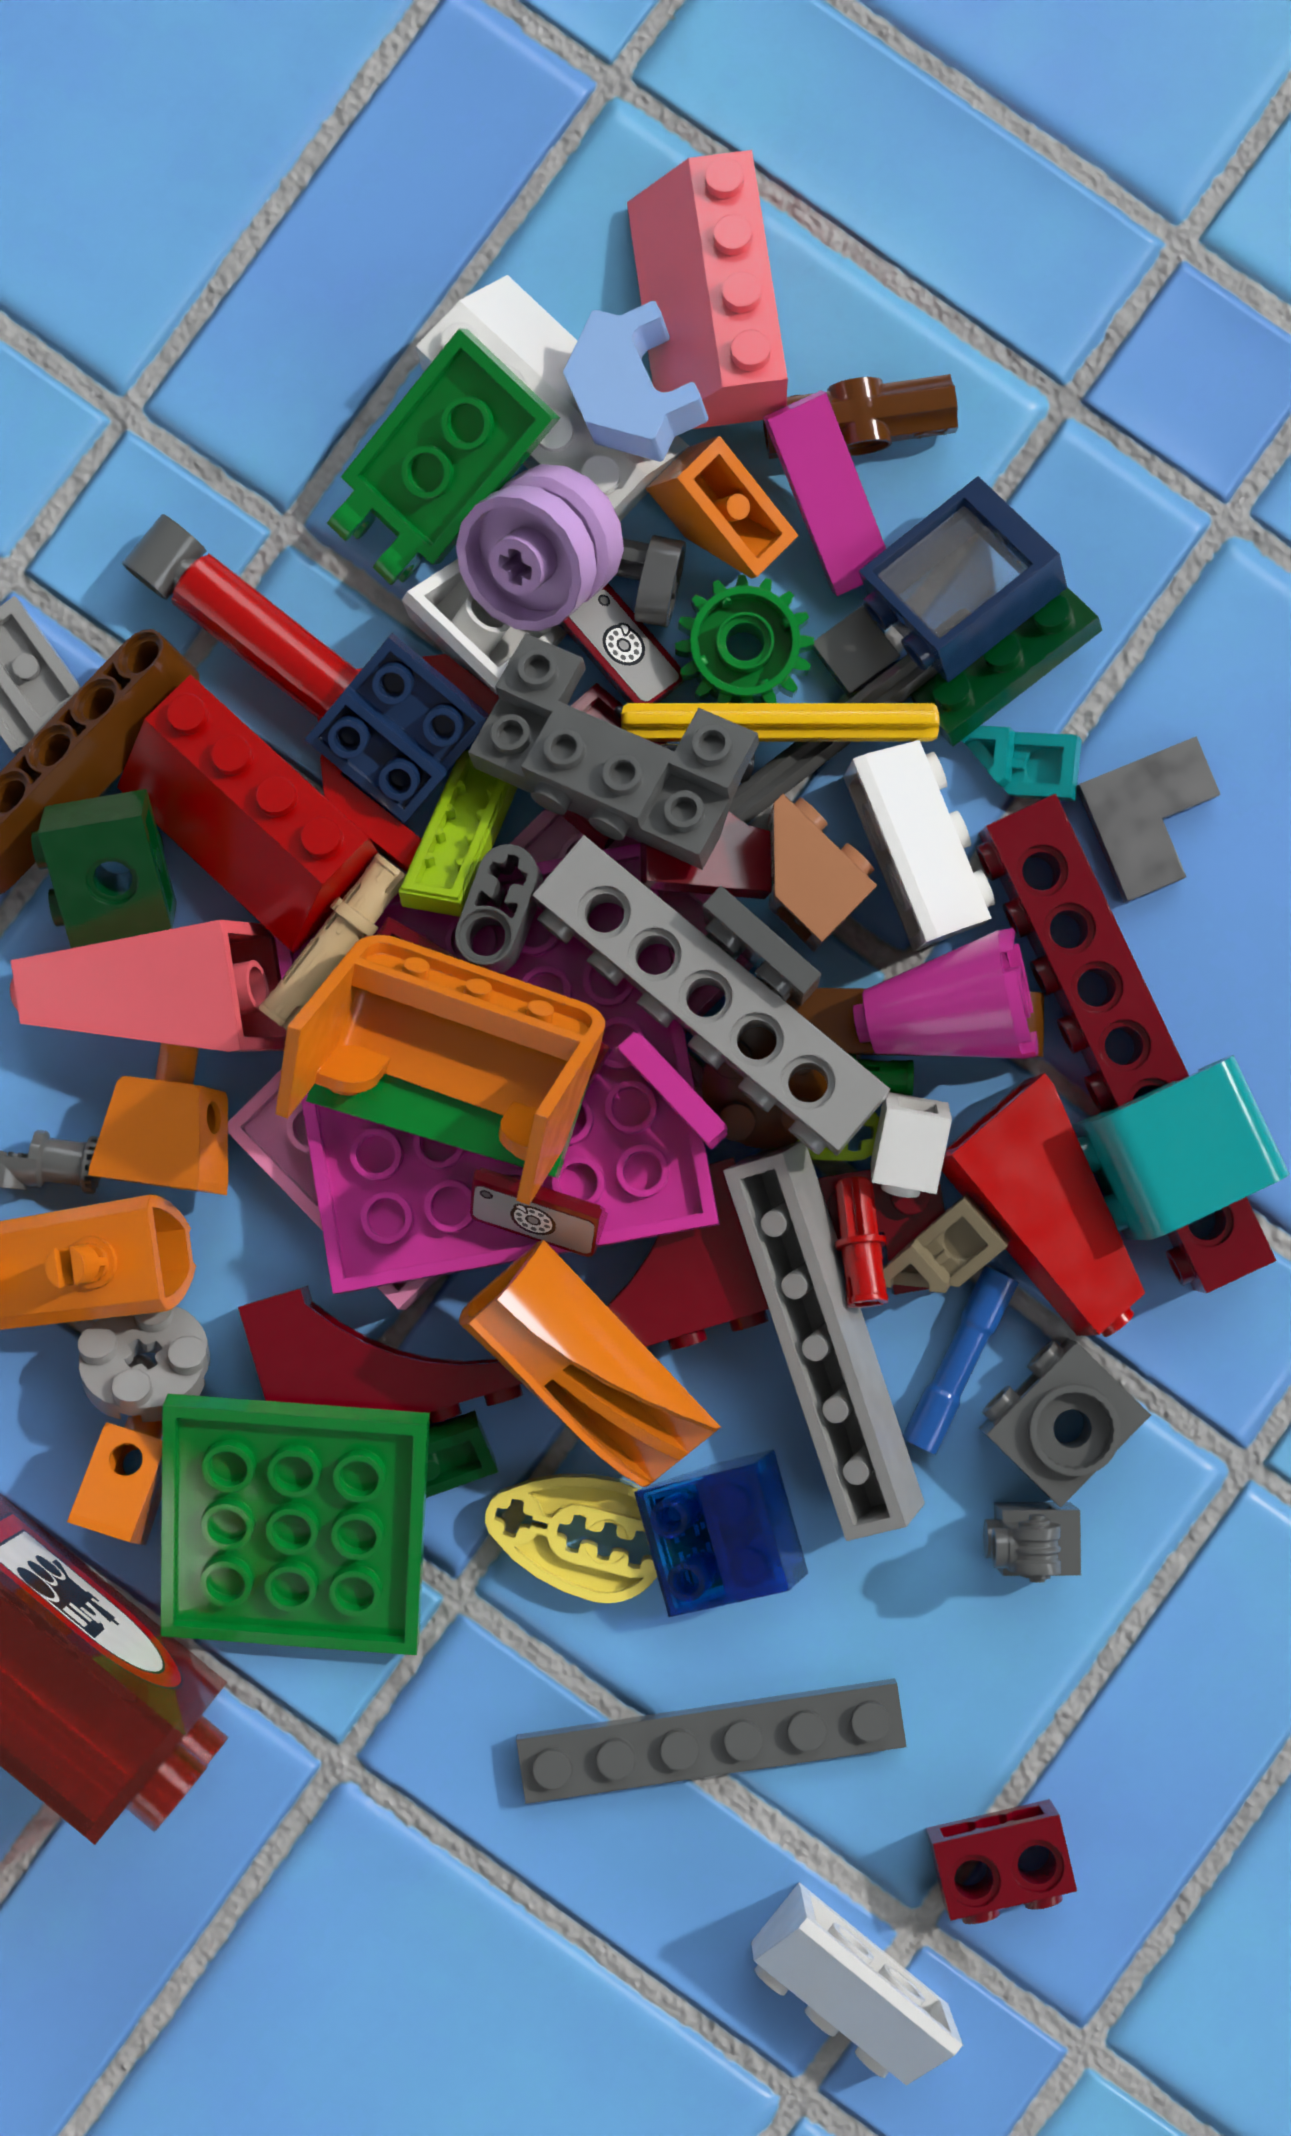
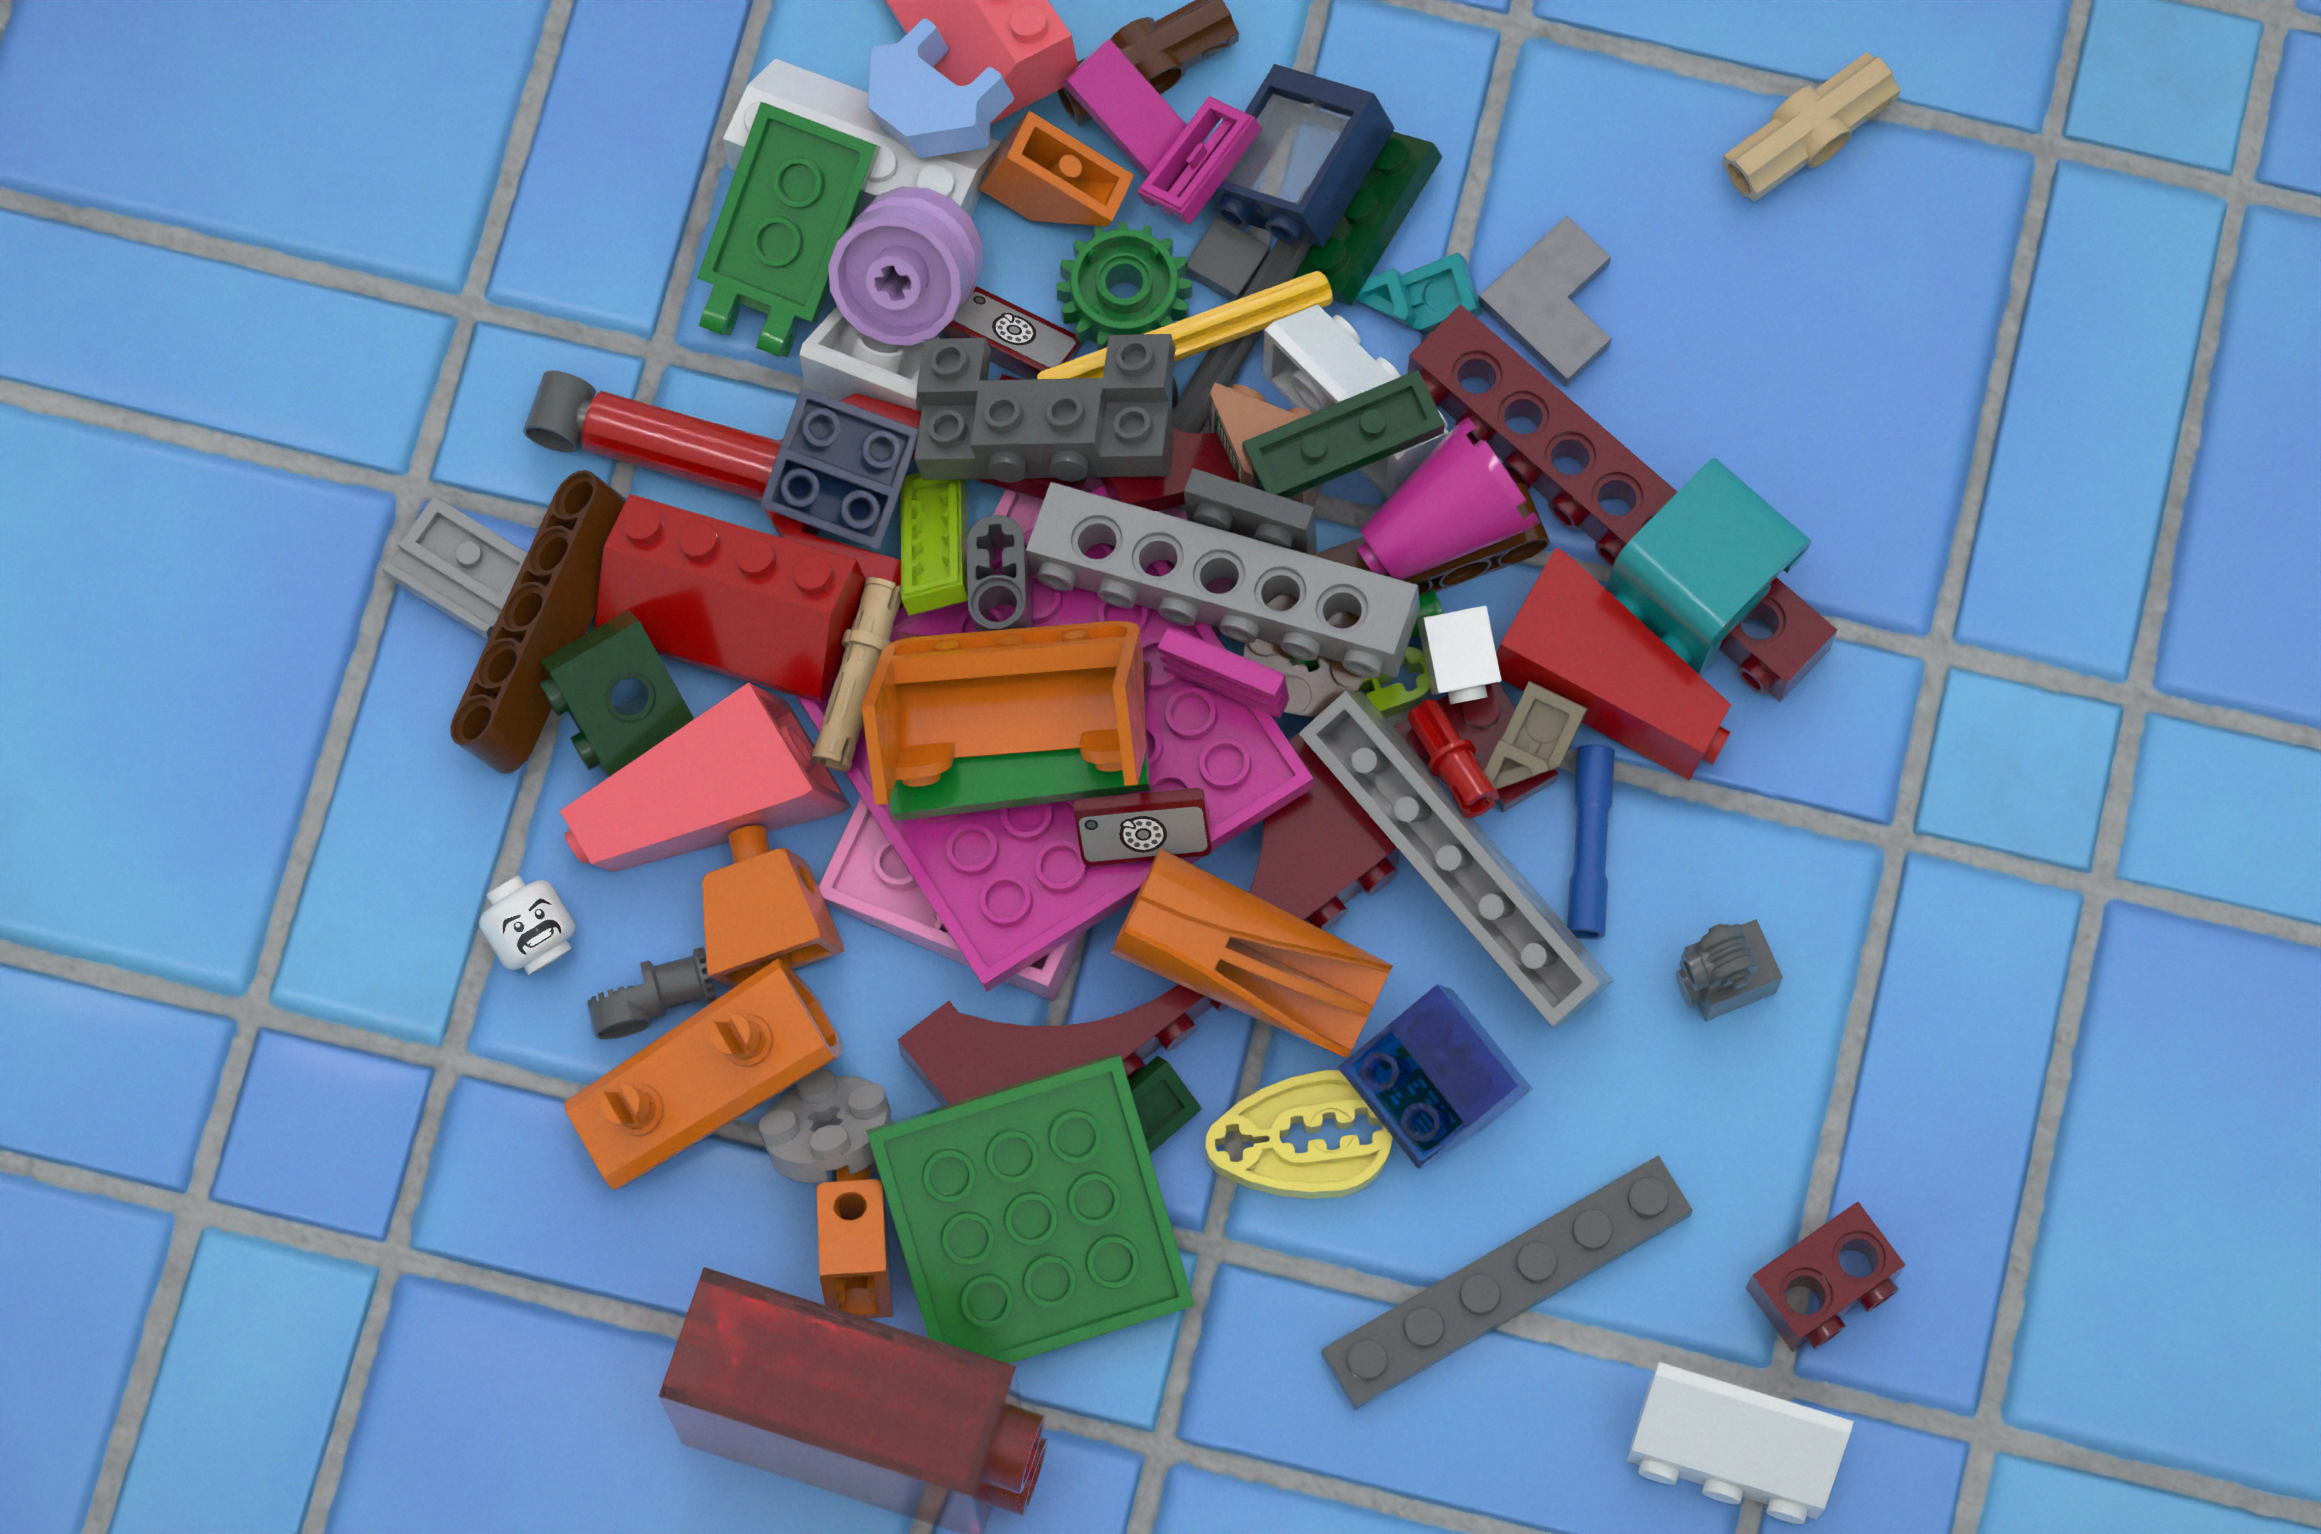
camera: 20 degrees left, 15 degrees down
(659, 572) = (1019, 255): dark grey piece -> none
(871, 554) = (1207, 163): none -> dark pink tile
(881, 905) = (1344, 436): none -> dark green plate
(1060, 1381) = (1700, 818): dark grey brick -> none

